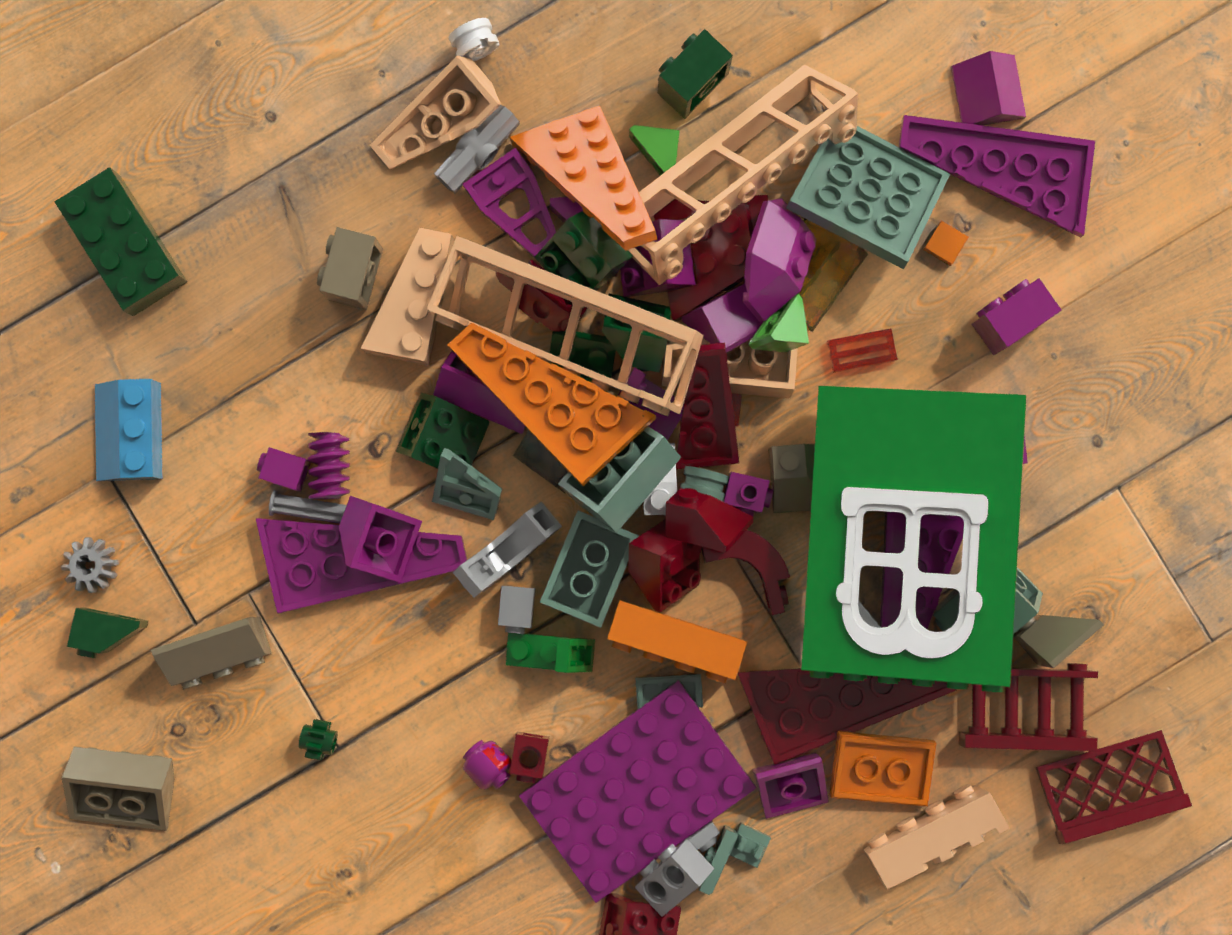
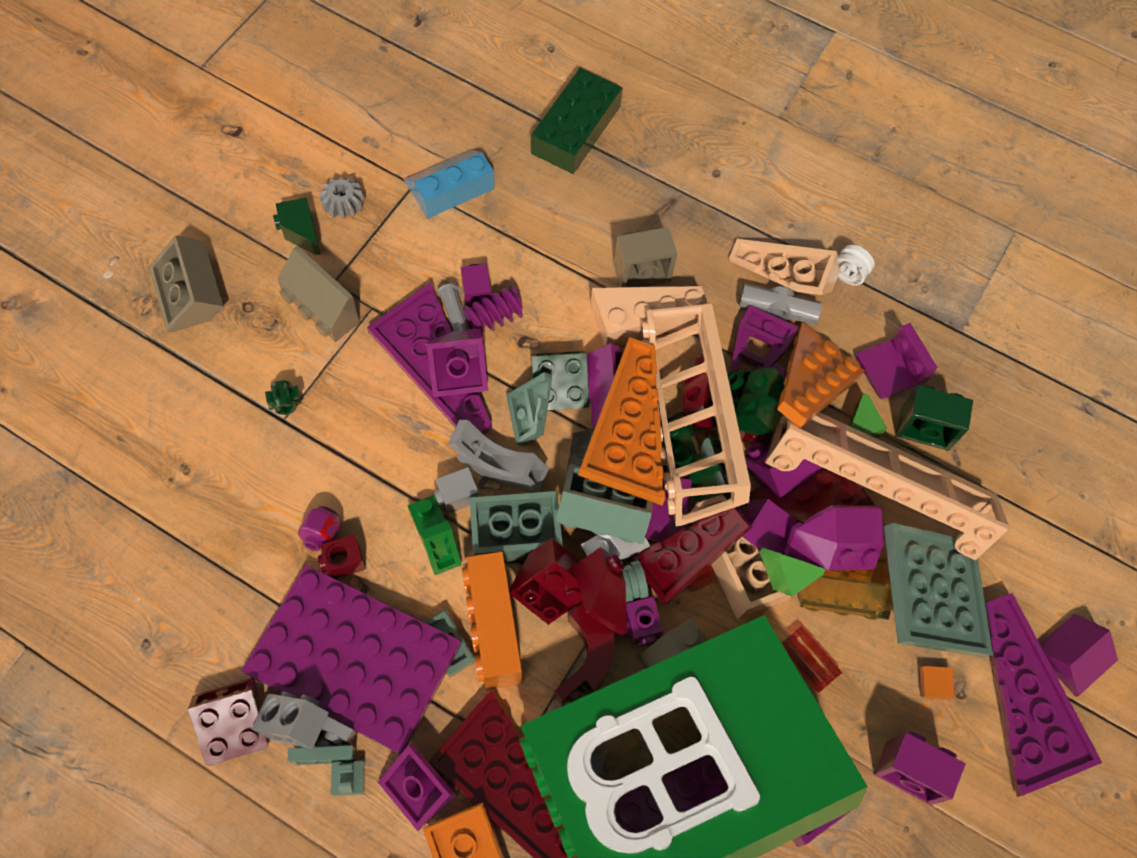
camera: 60 degrees right, 20 degrees down
(610, 69) = (897, 363): none -> magenta bracket

